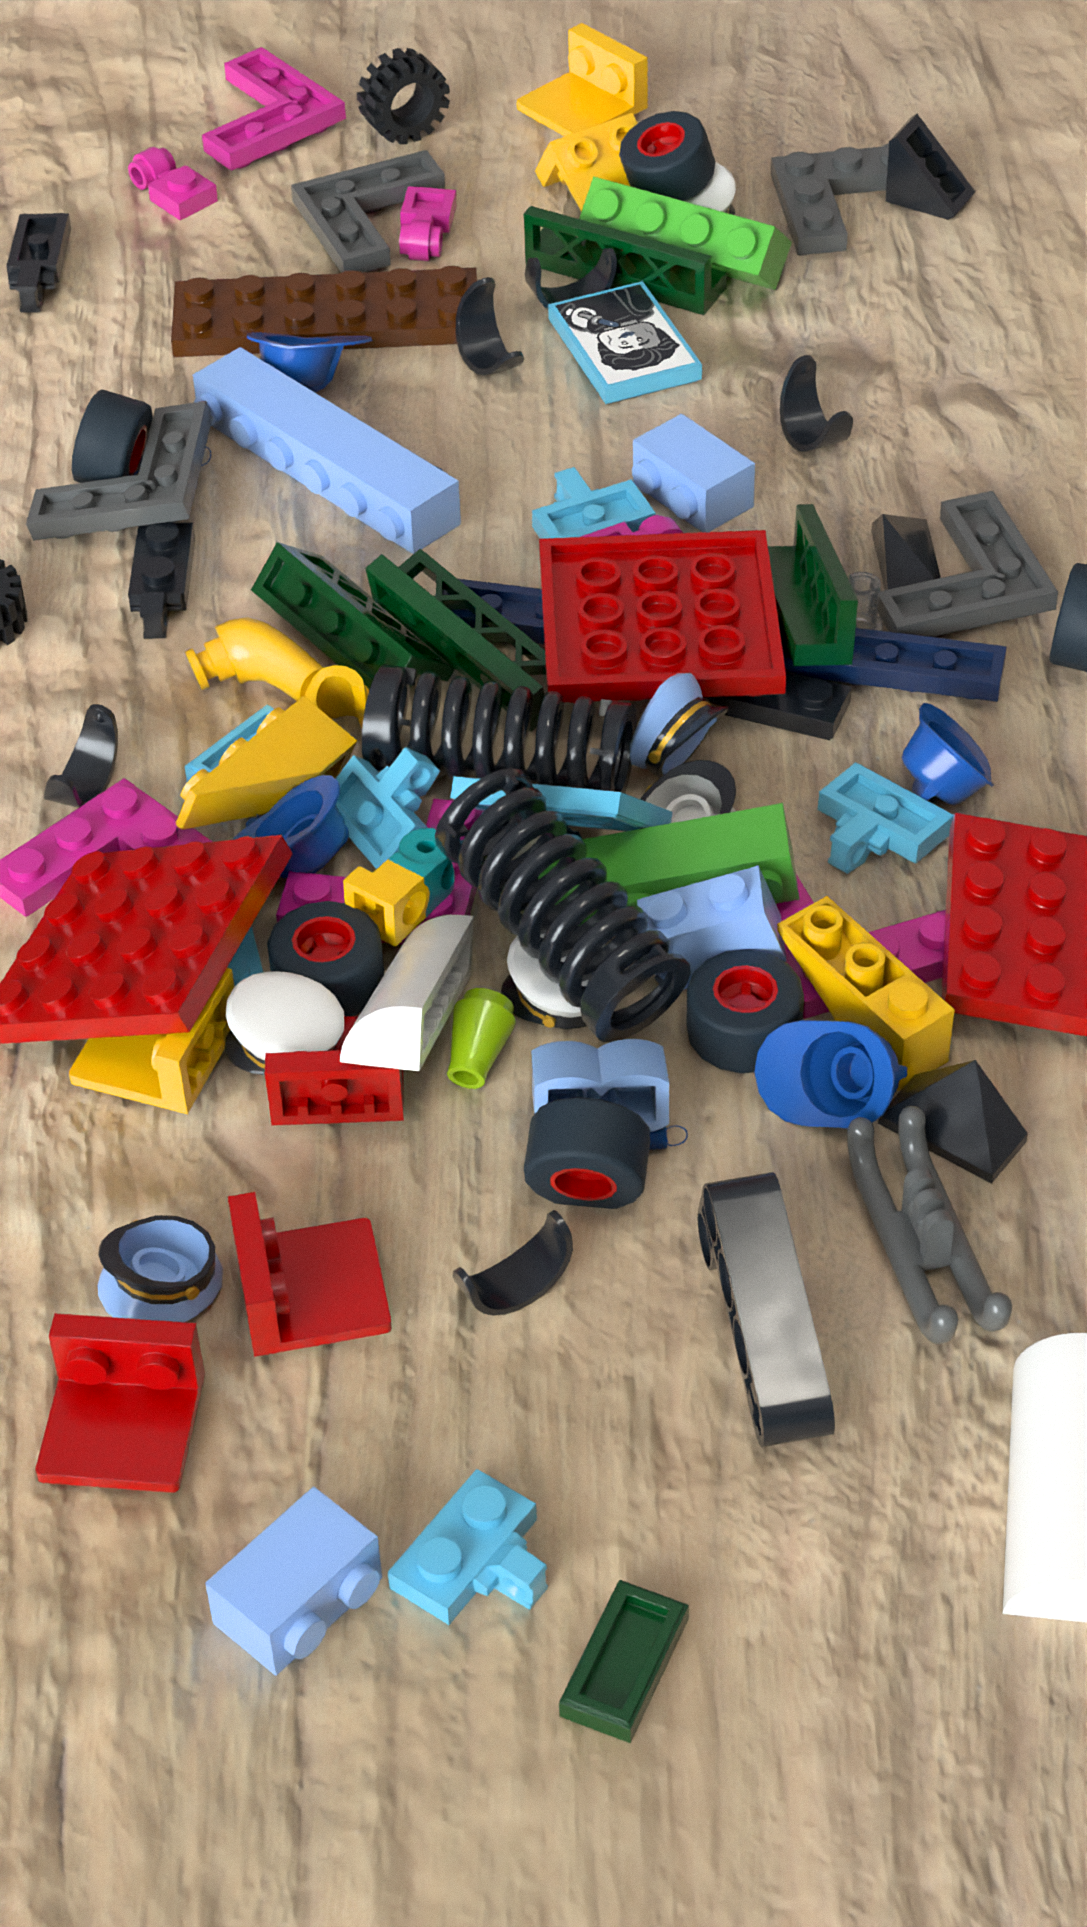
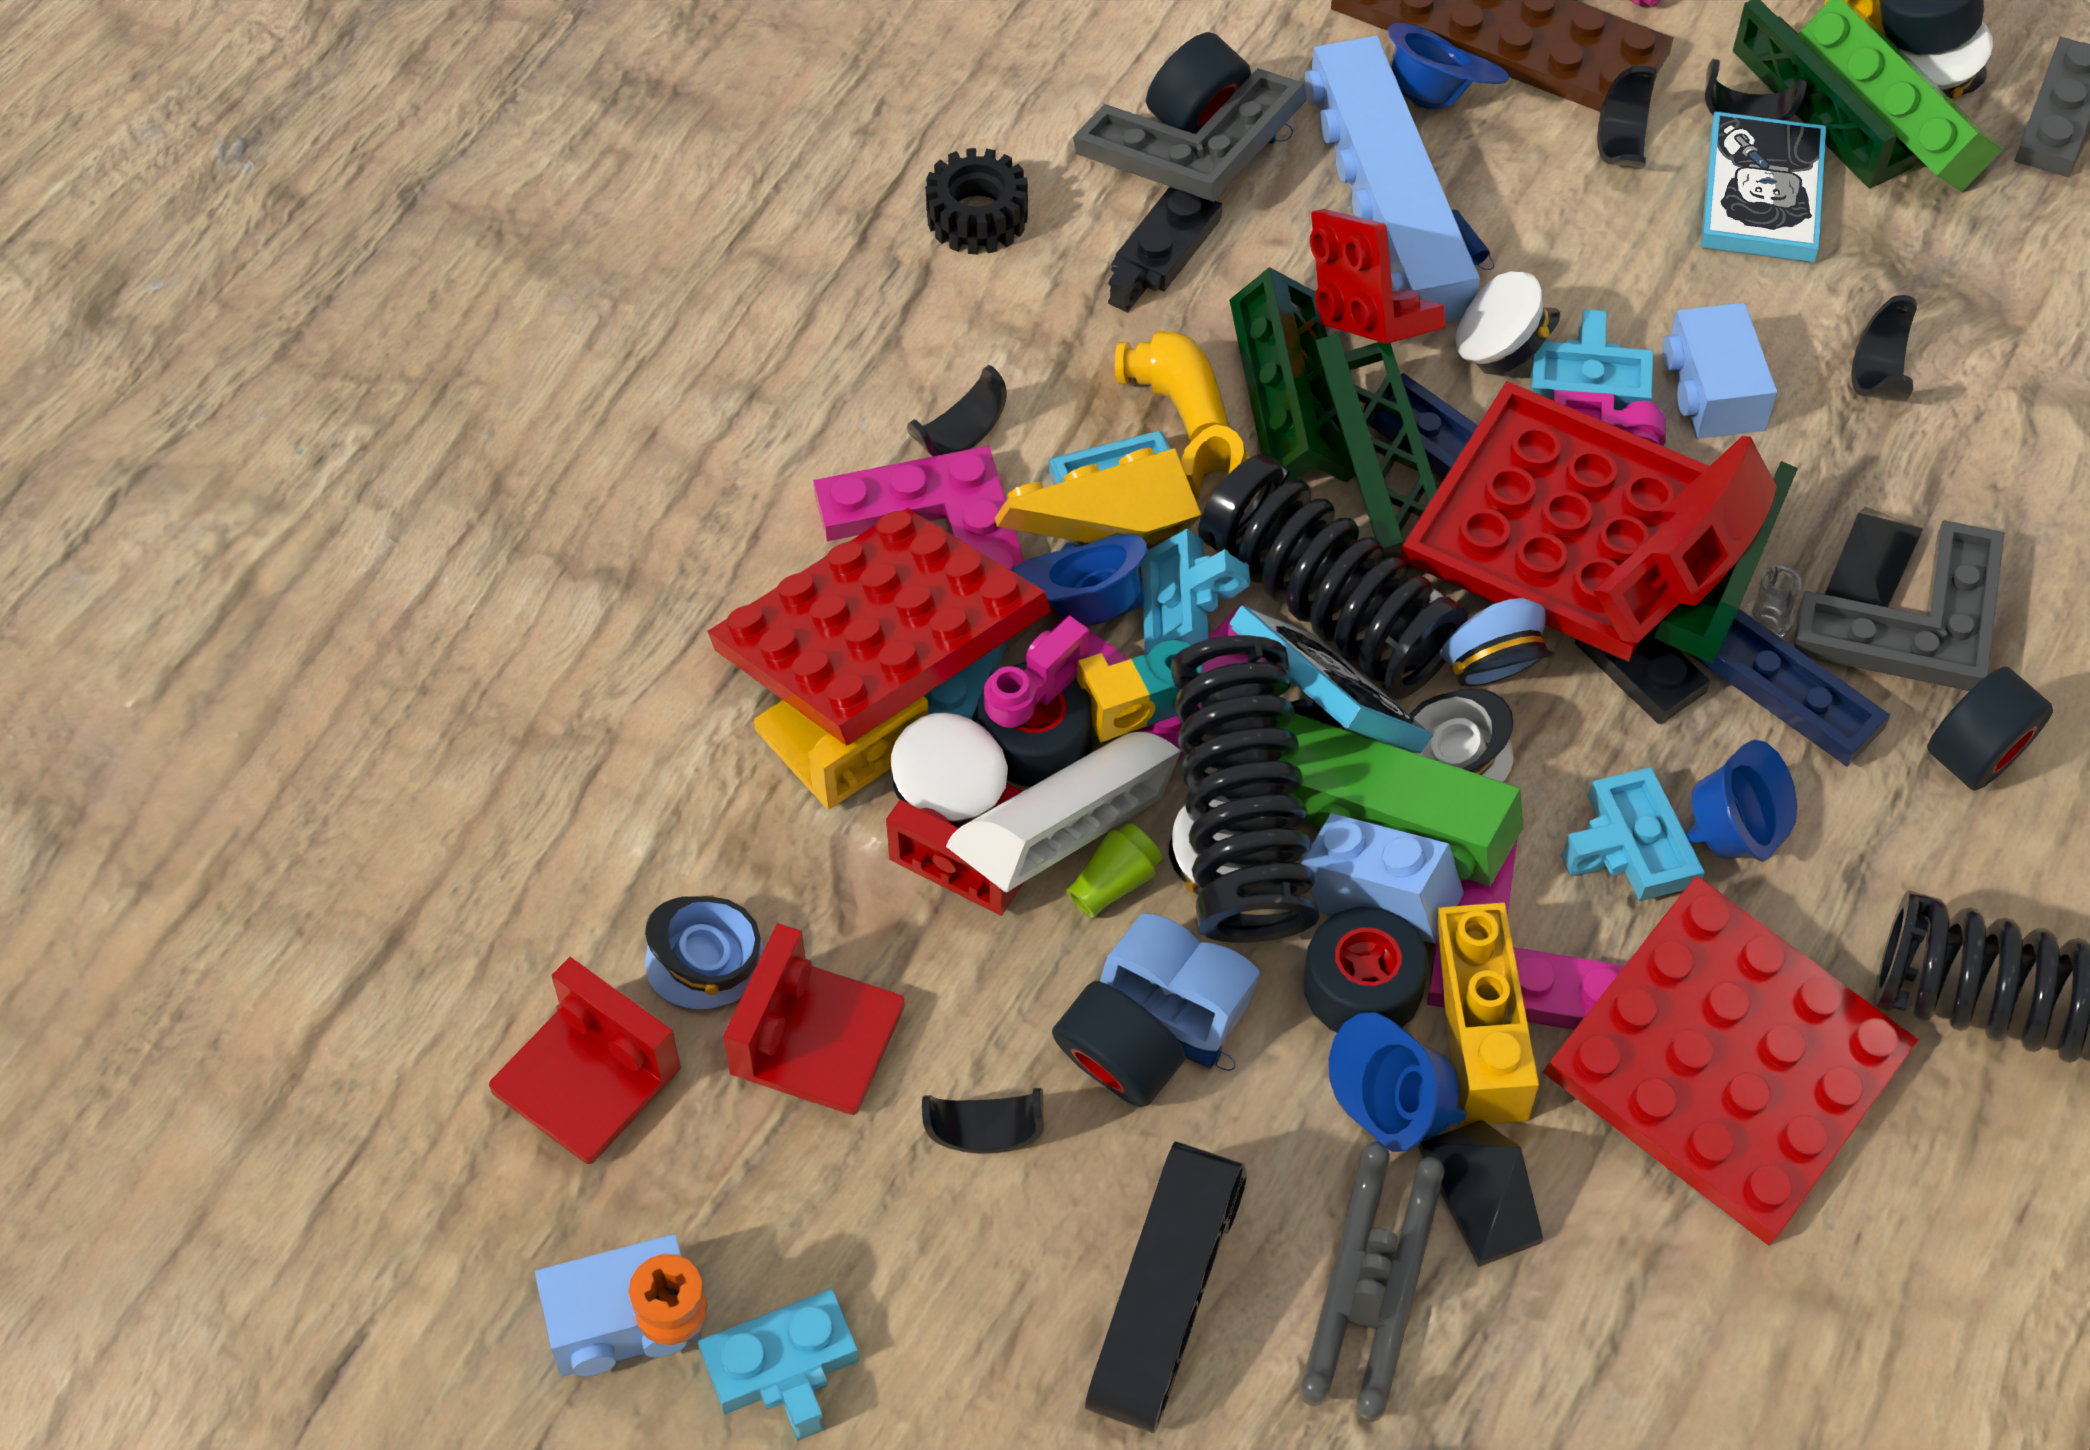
camera: 30 degrees right, 10 degrees up
(310, 921) = (1051, 667): none -> dark pink plate
(363, 1548) = (673, 1316): none -> orange wheel
(367, 510) = (1357, 283): none -> red bracket
(500, 506) = (1505, 323): none -> white piece
(787, 583) = (1697, 545): none -> red slope

